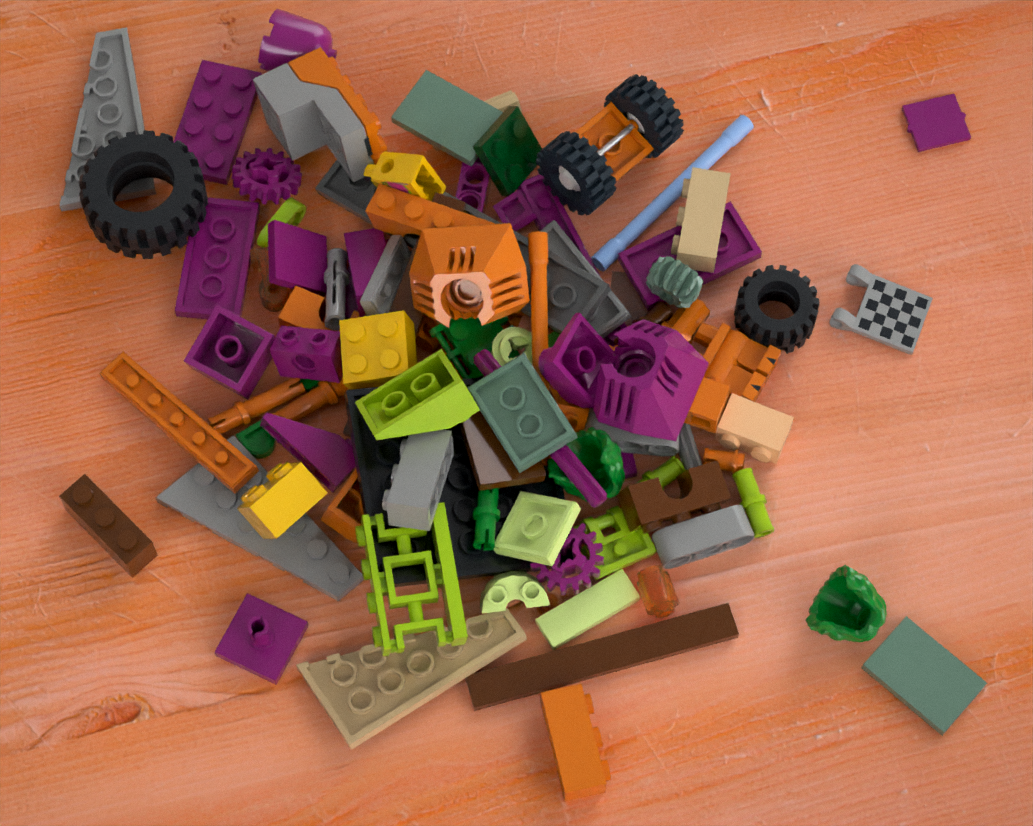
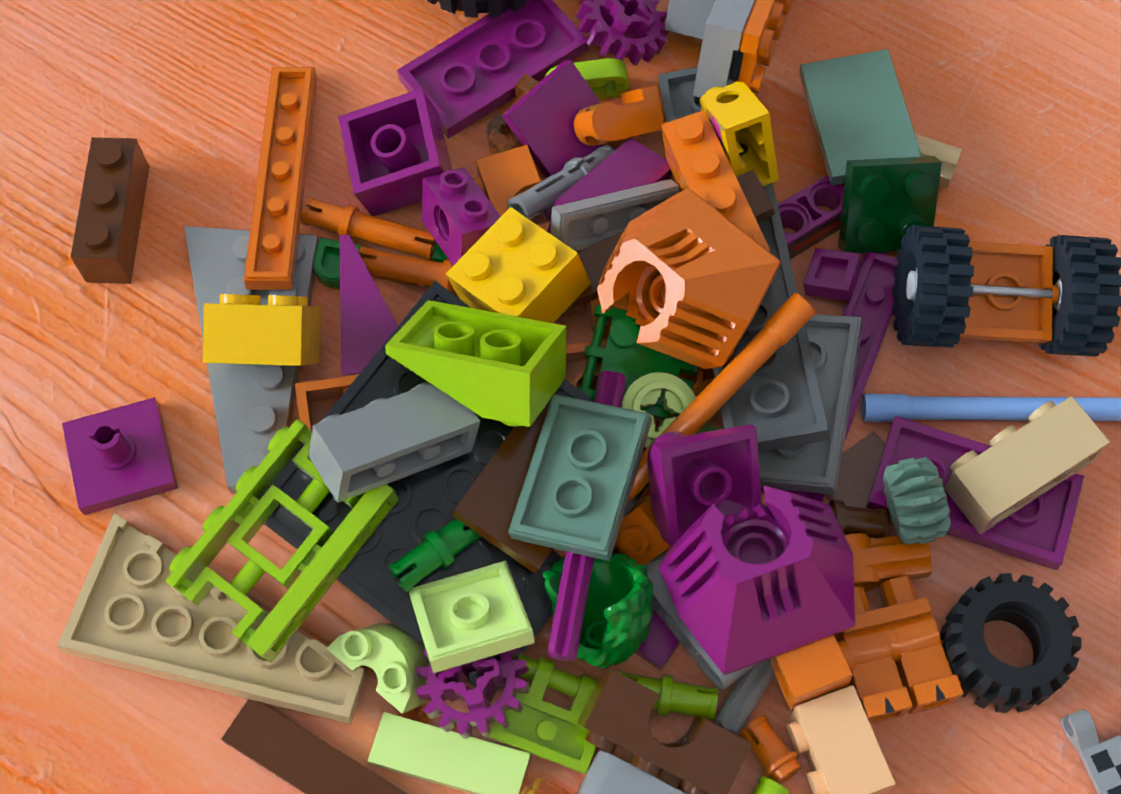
camera: 50 degrees right, 0 degrees up
(329, 227) = (609, 122): none -> orange leg

